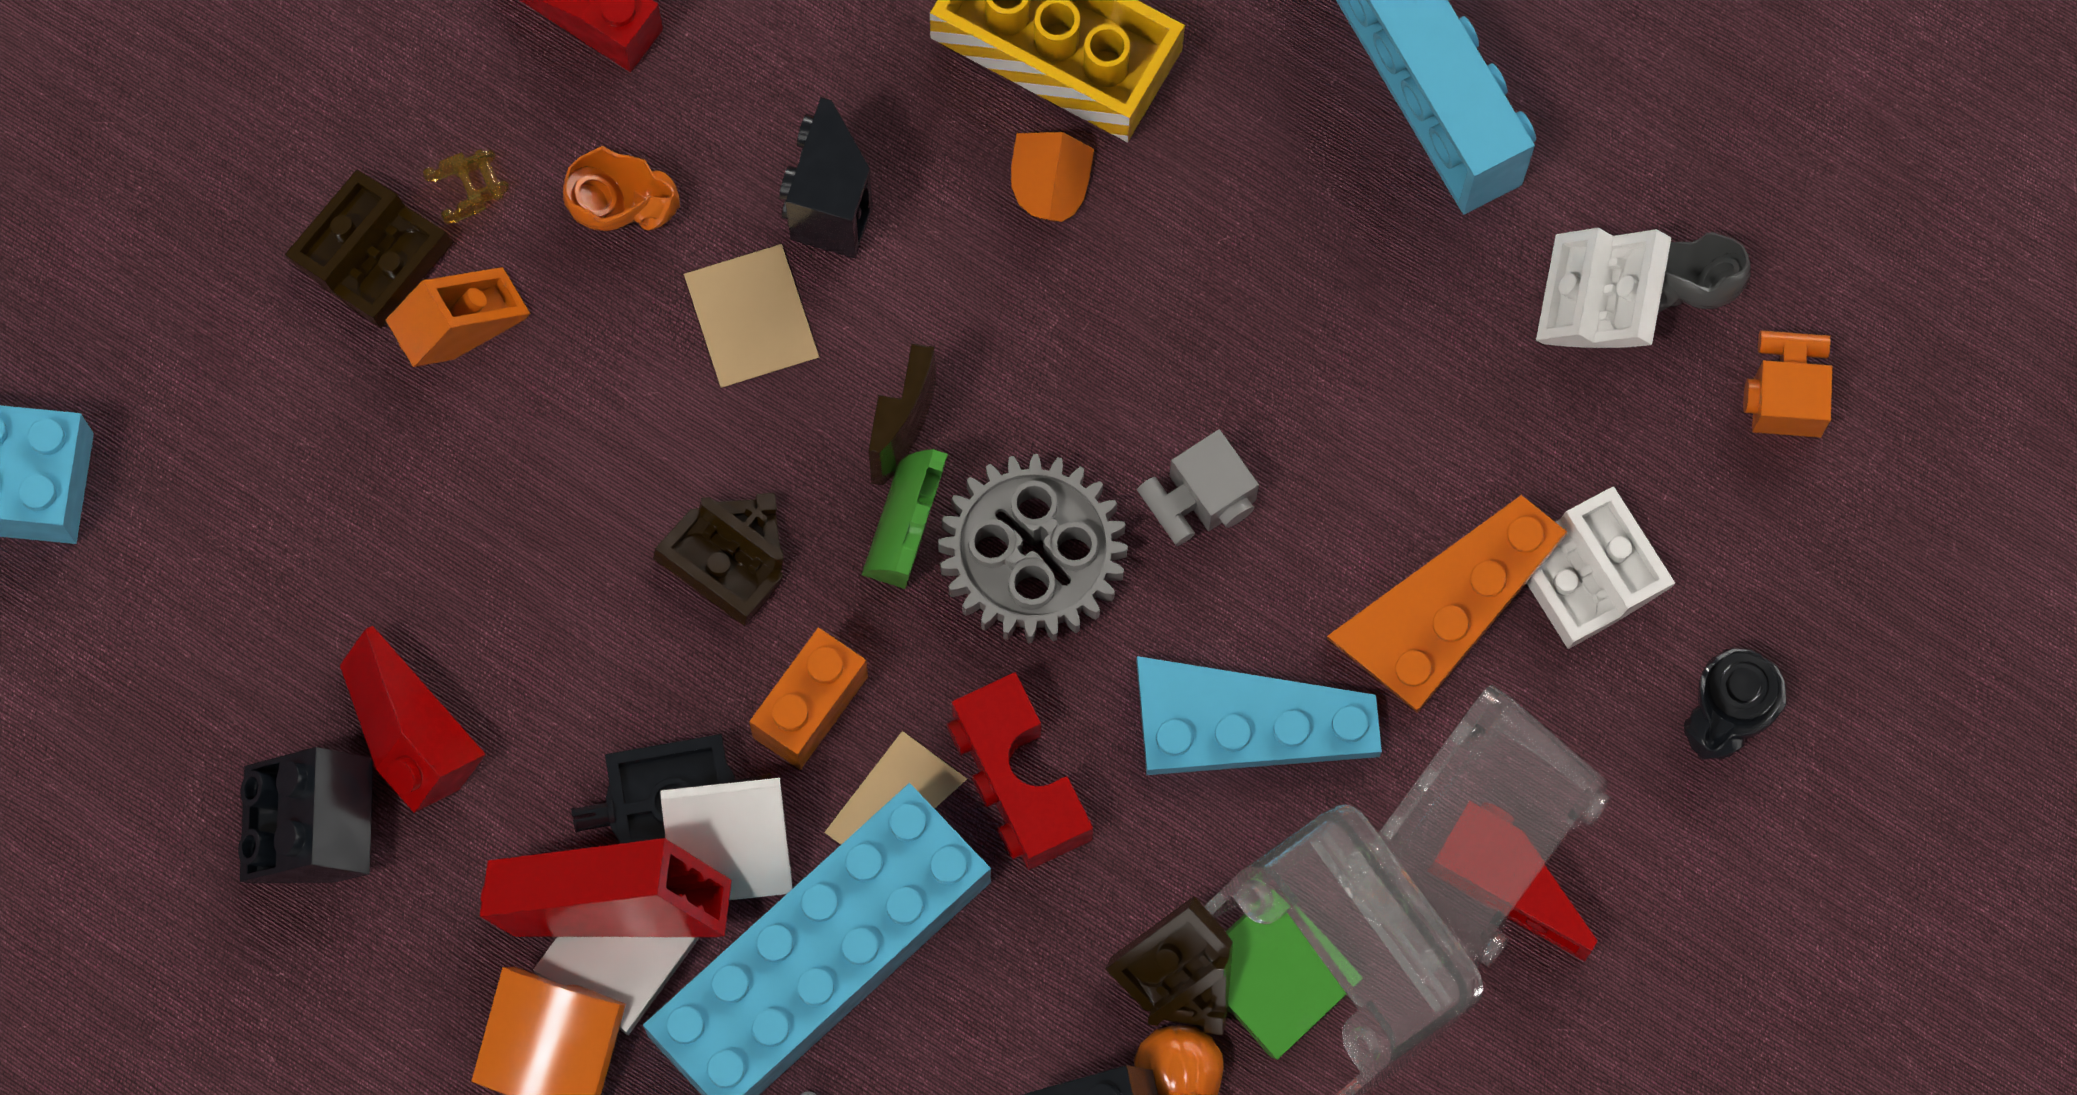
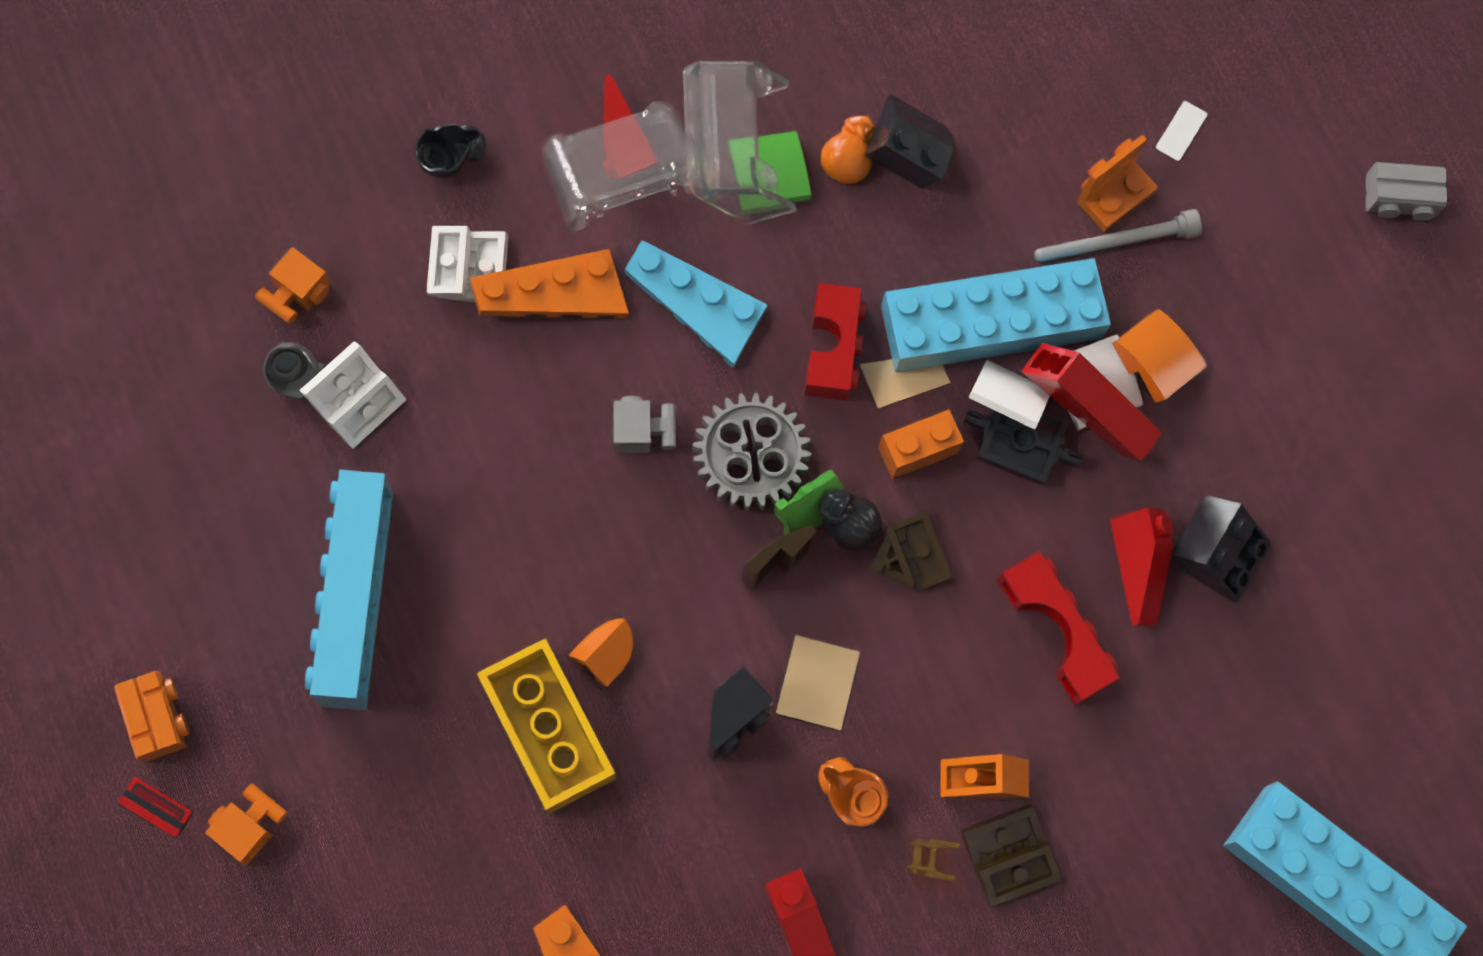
camera: 155 degrees left, 0 degrees up
(536, 601) = (1035, 587): none -> red arch
(840, 536) = (850, 519): none -> black hair
(1179, 969) = (819, 193): dark brown slope -> none

